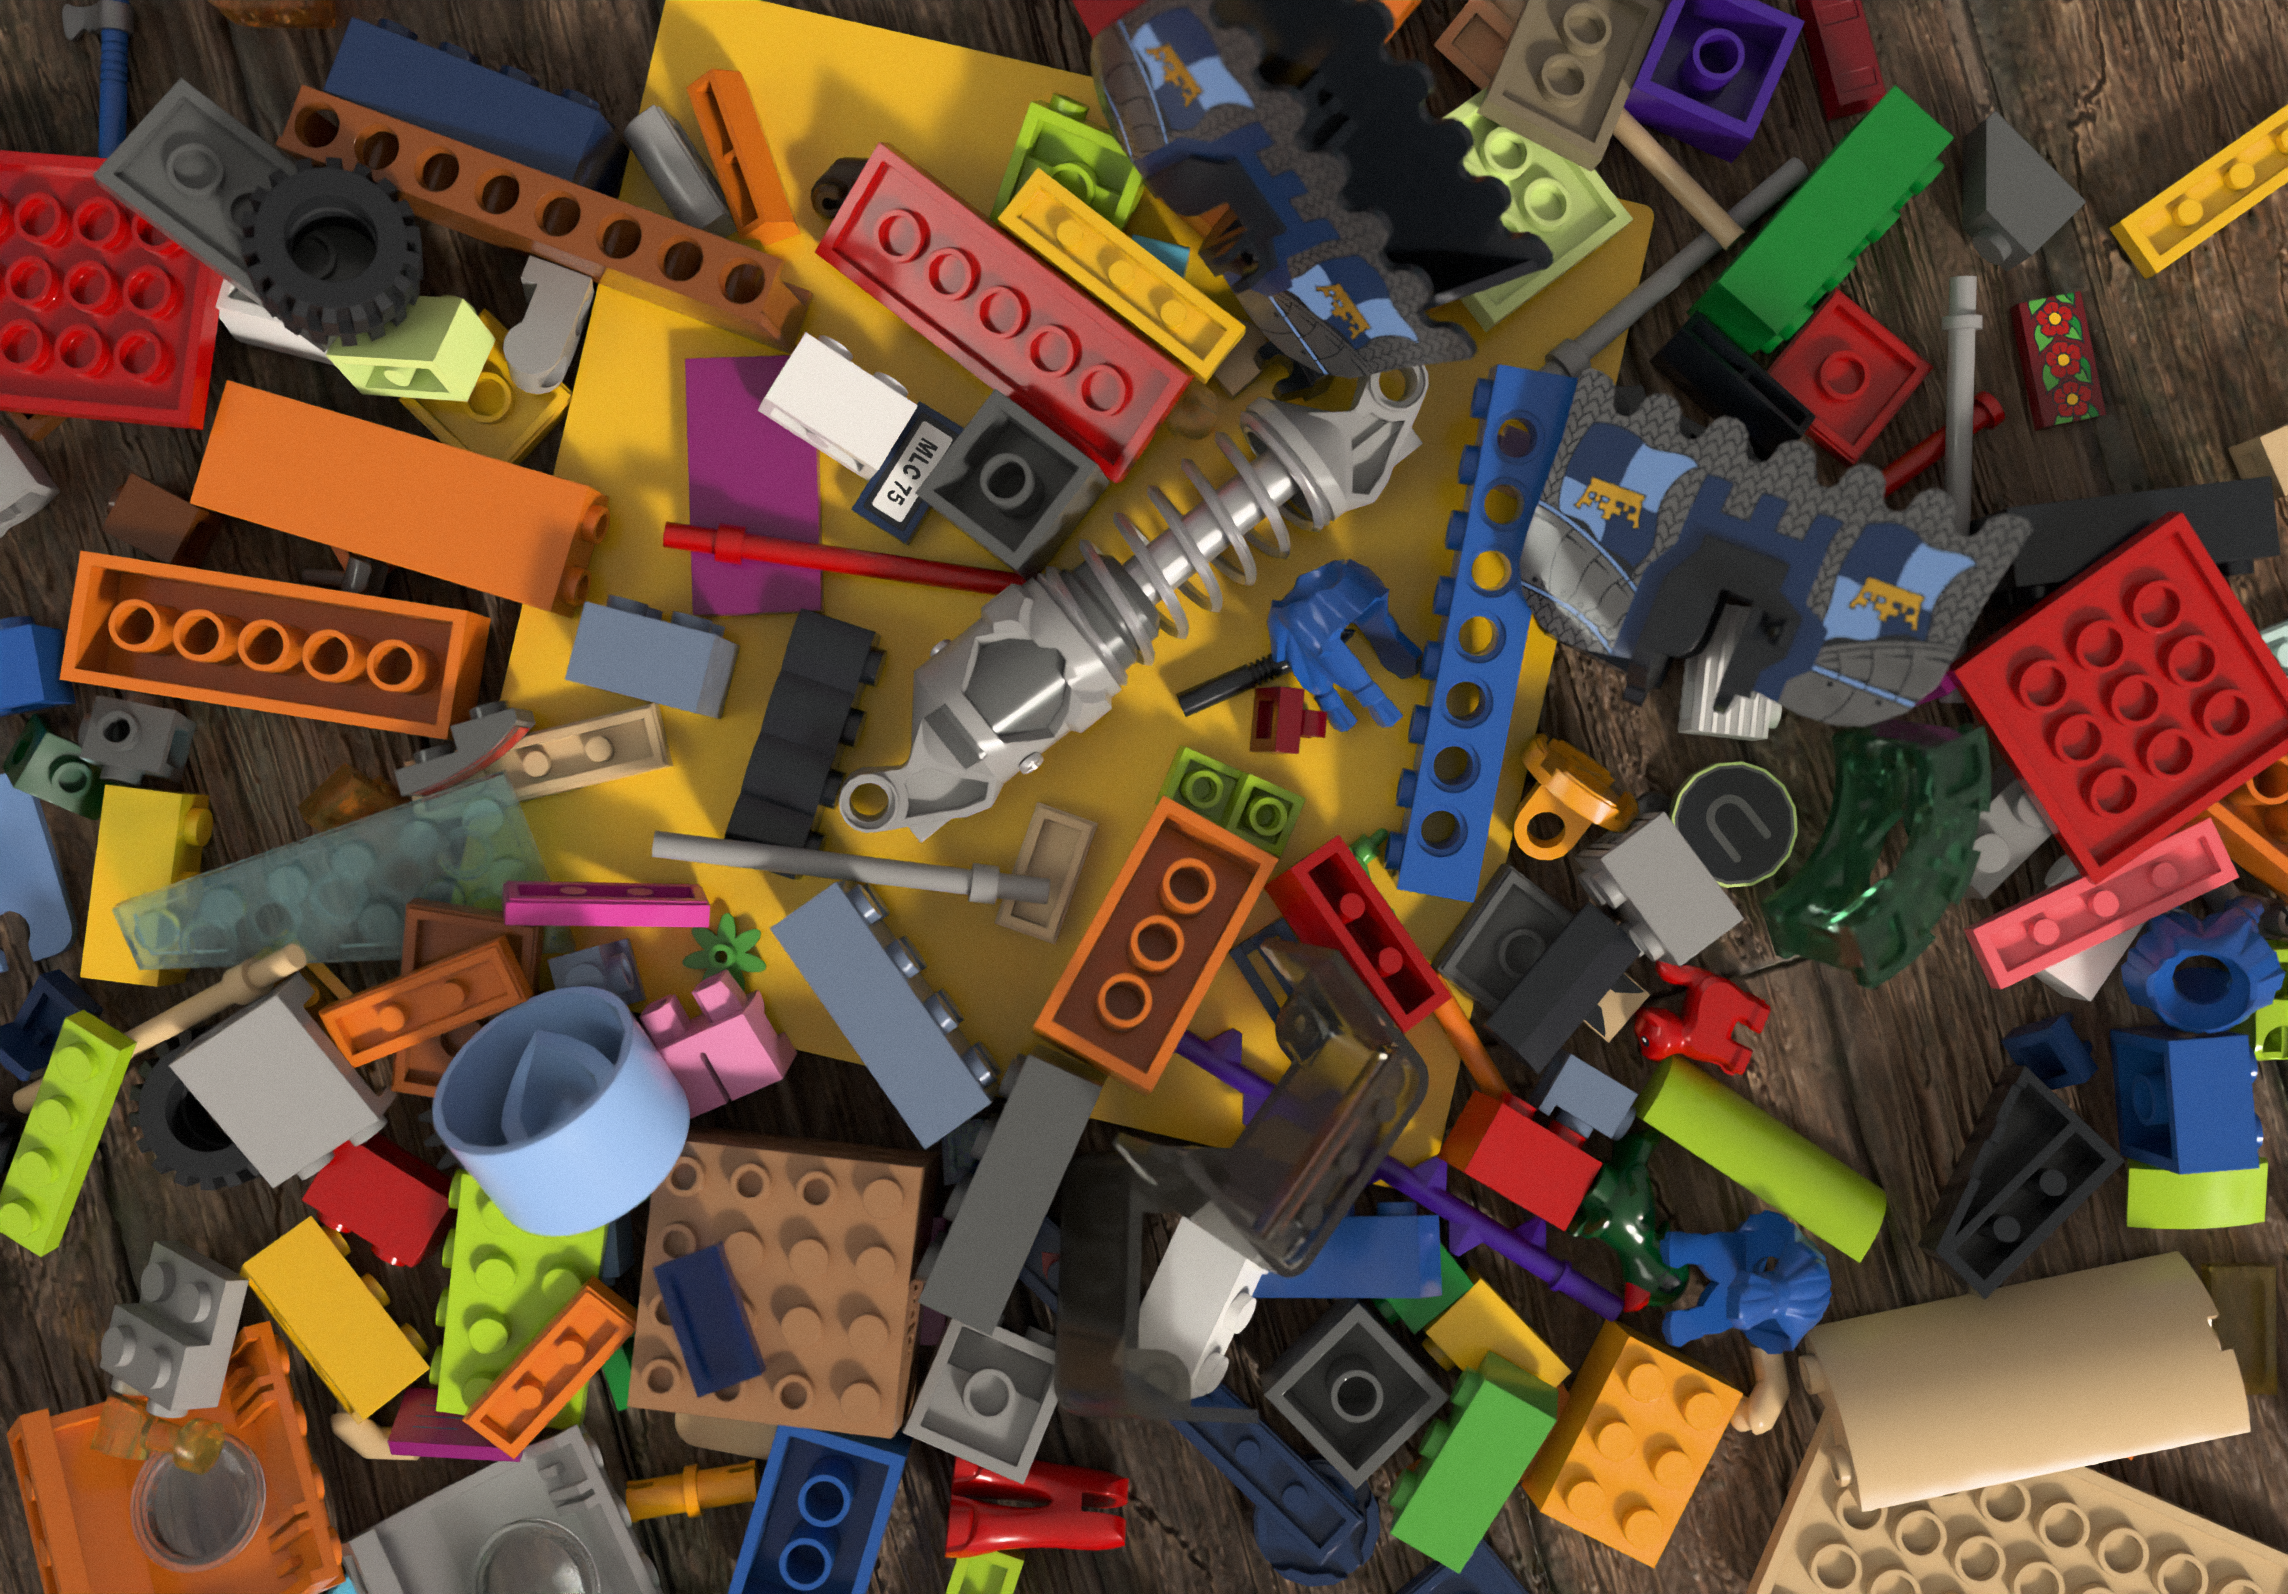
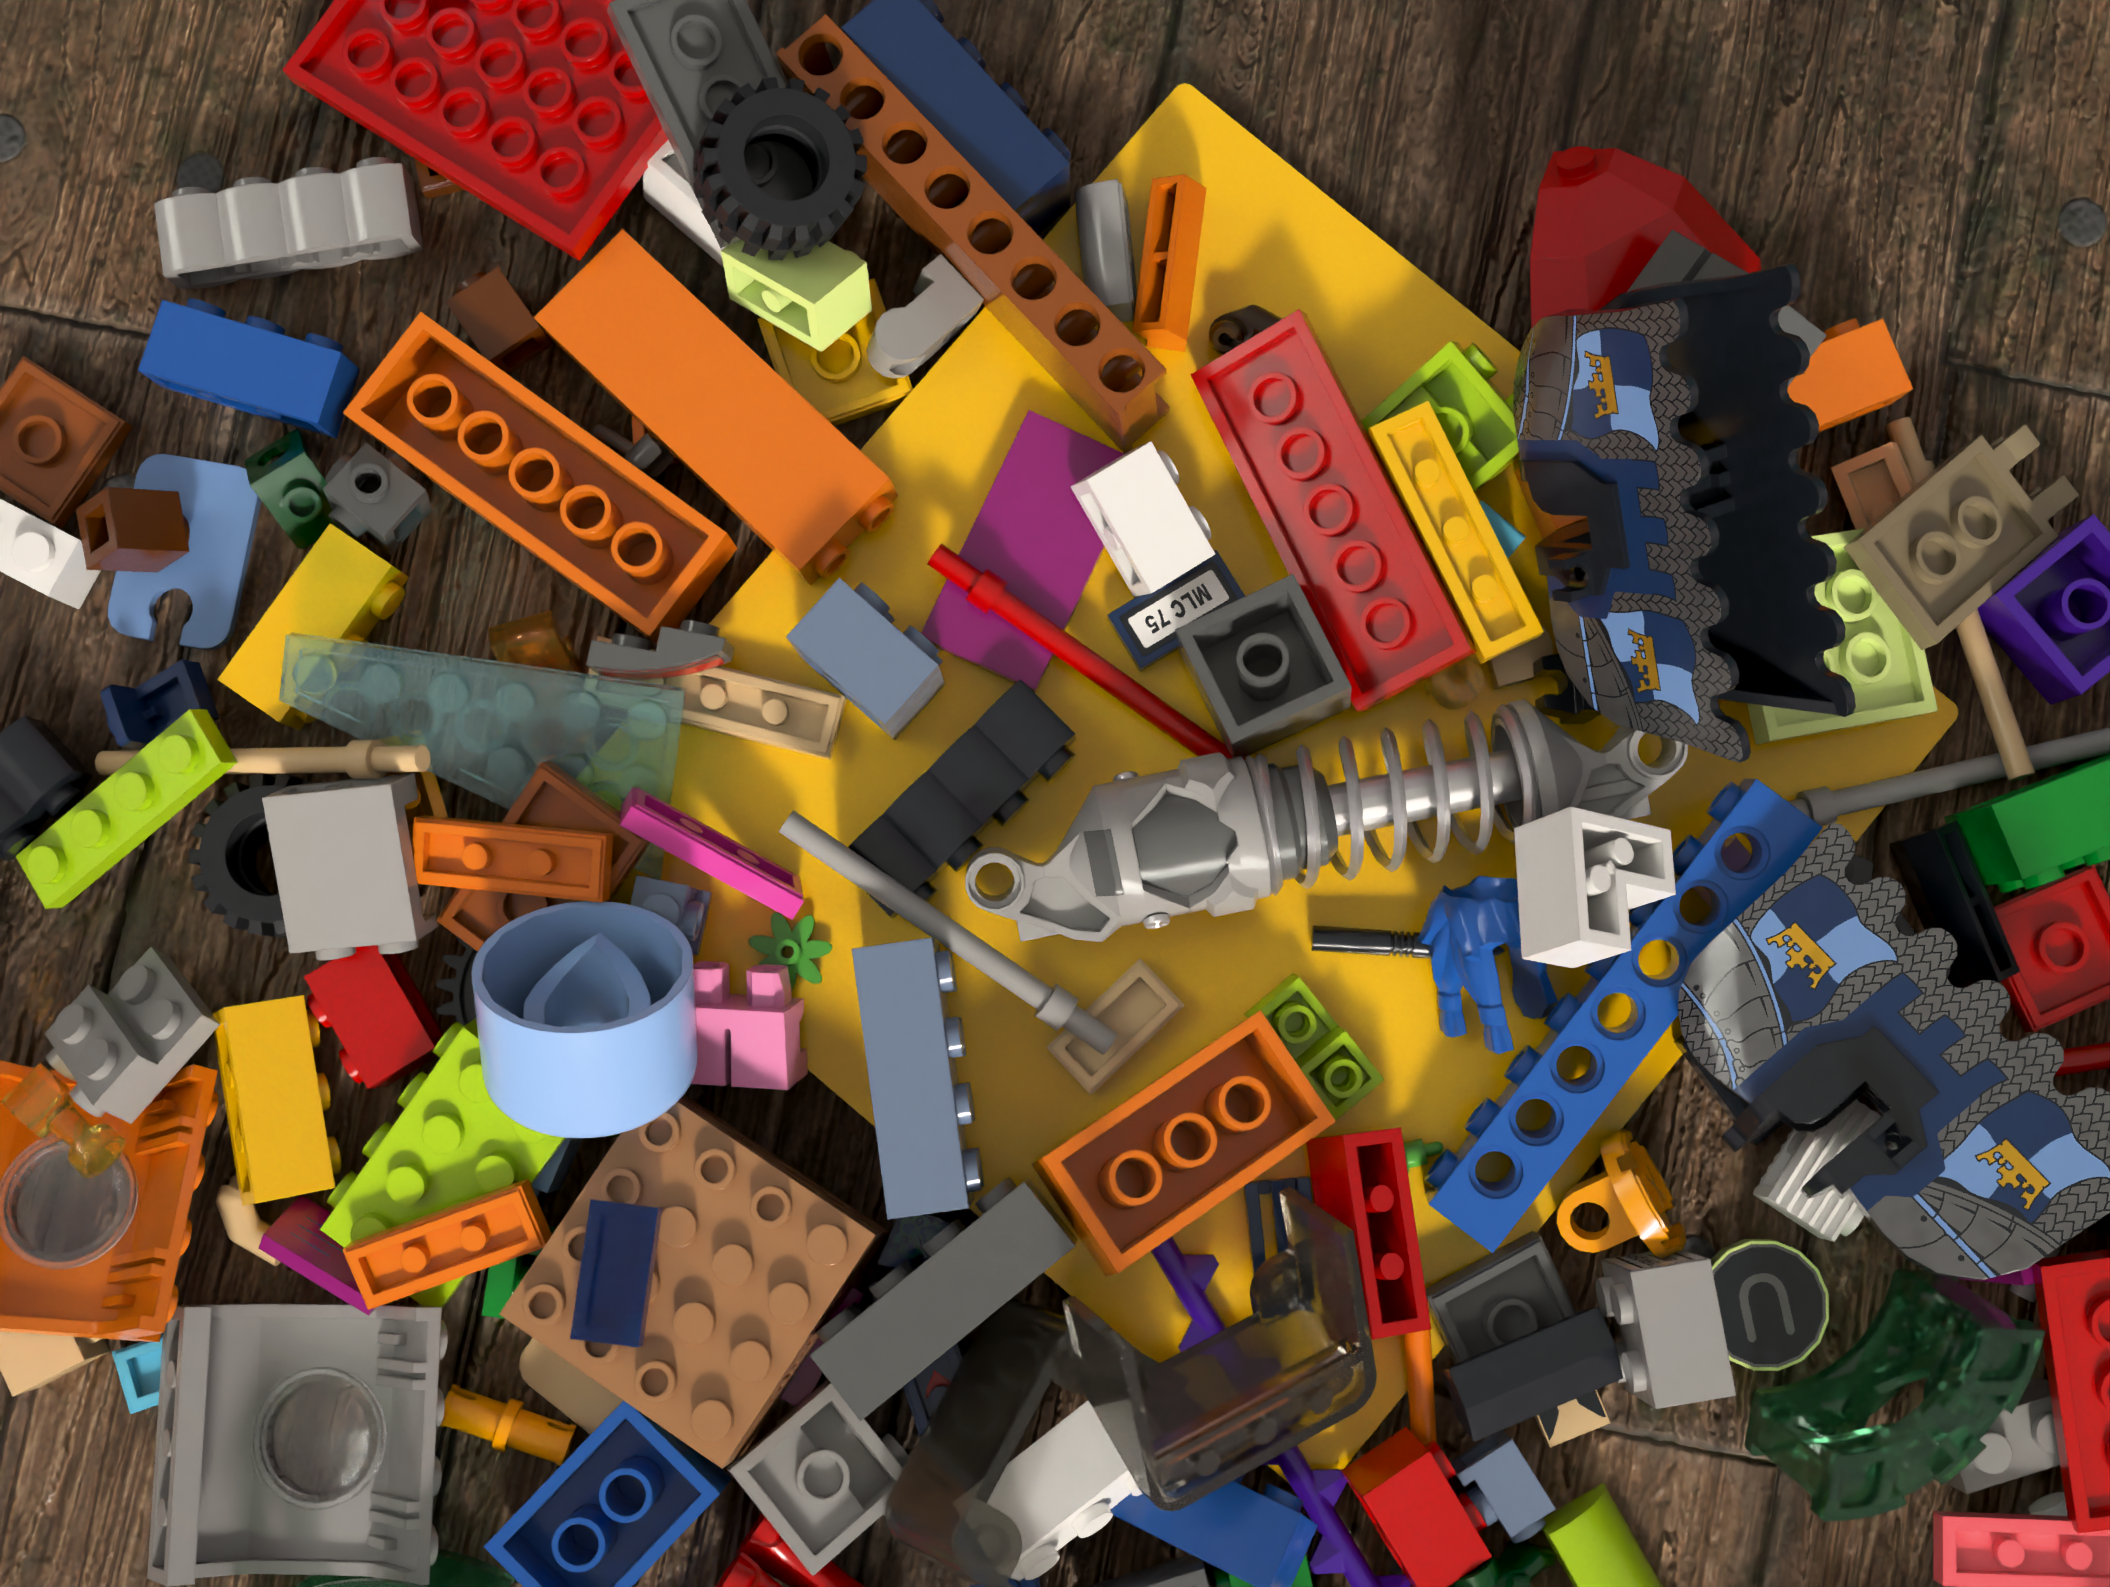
camera: 30 degrees right, 5 degrees down
(1281, 721) = (1398, 999): dark red tile -> none
(1386, 534) = (1582, 878): none -> white brick
(1706, 1020) = (1651, 1472): red animal -> none

